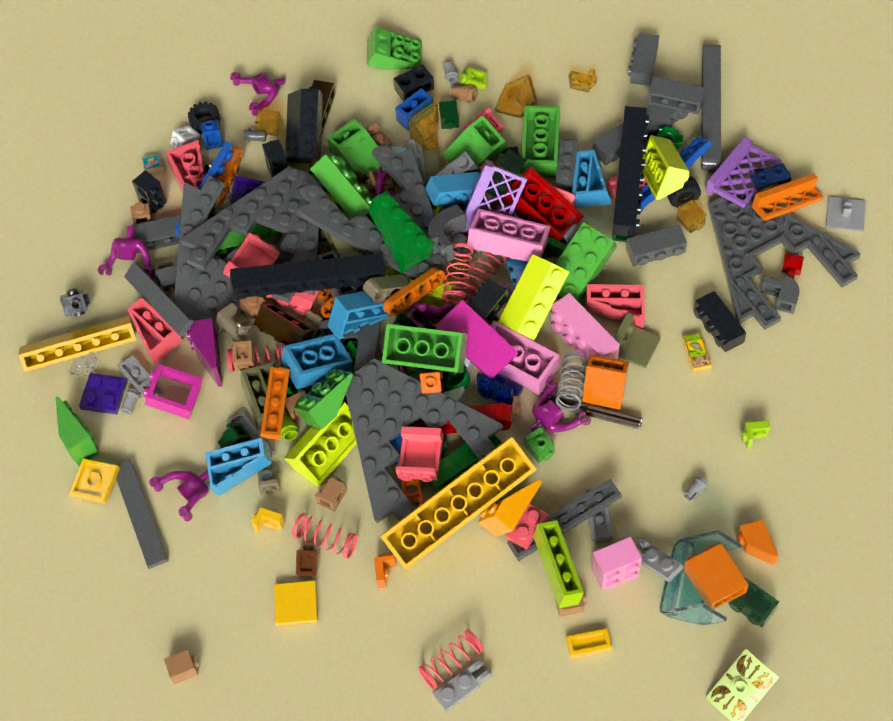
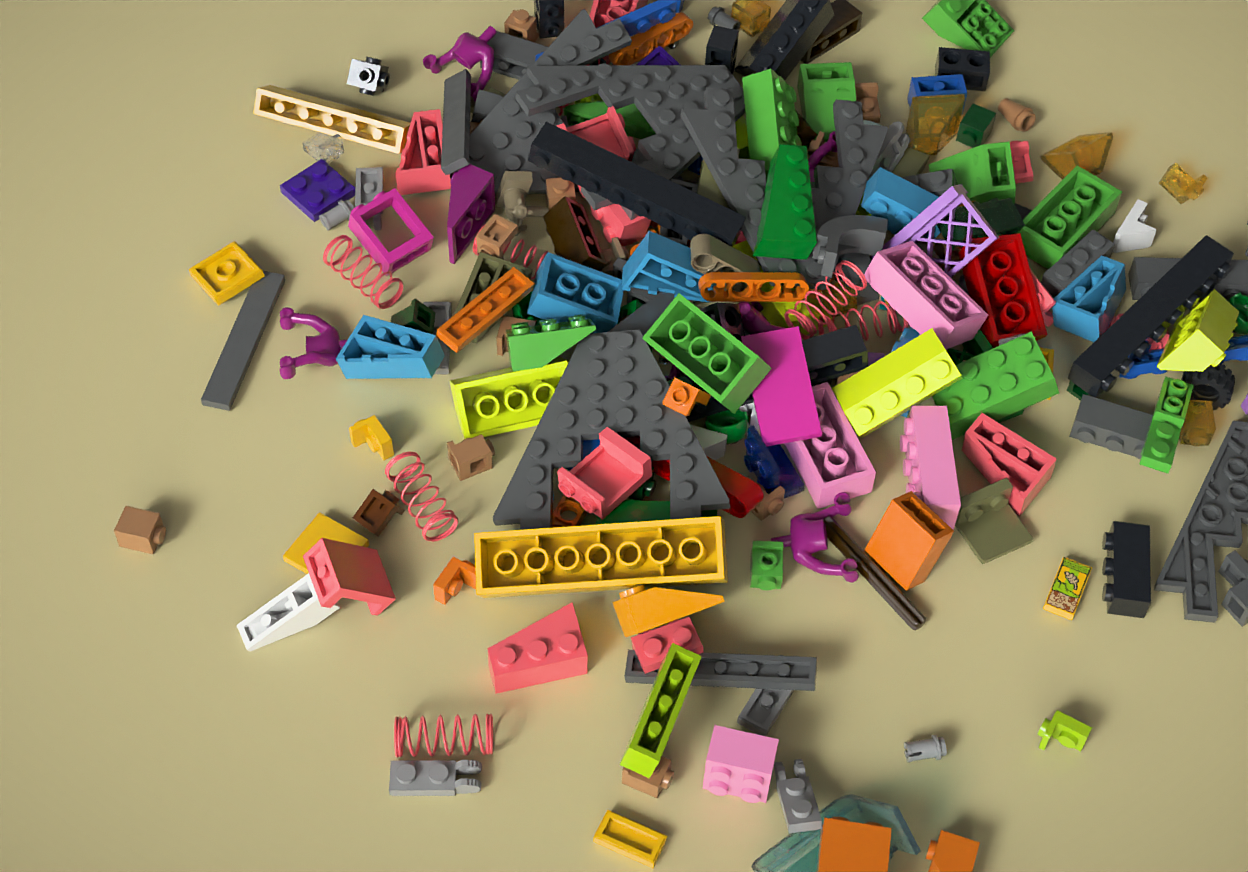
camera: 30 degrees right, 5 degrees down
(75, 437) = (243, 206): bright green slope -> none
(202, 434) = (390, 302): none -> coral piece
(268, 480) = (413, 396): dark tan bracket -> none
(289, 429) = (483, 353): lime cone -> none
(308, 653) = (284, 615): none -> white slope
(327, 609) = (350, 573): none -> coral panel
(450, 74) = (1017, 86): light grey pin -> none
(463, 578) = (539, 653): none -> coral wedge
(474, 77) = (1043, 104): lime bracket -> none
(571, 370) = (883, 504): light grey piece -> none
(578, 125) = (1134, 232): none -> white slope
(683, 230) = (1166, 425): none -> bright green slope

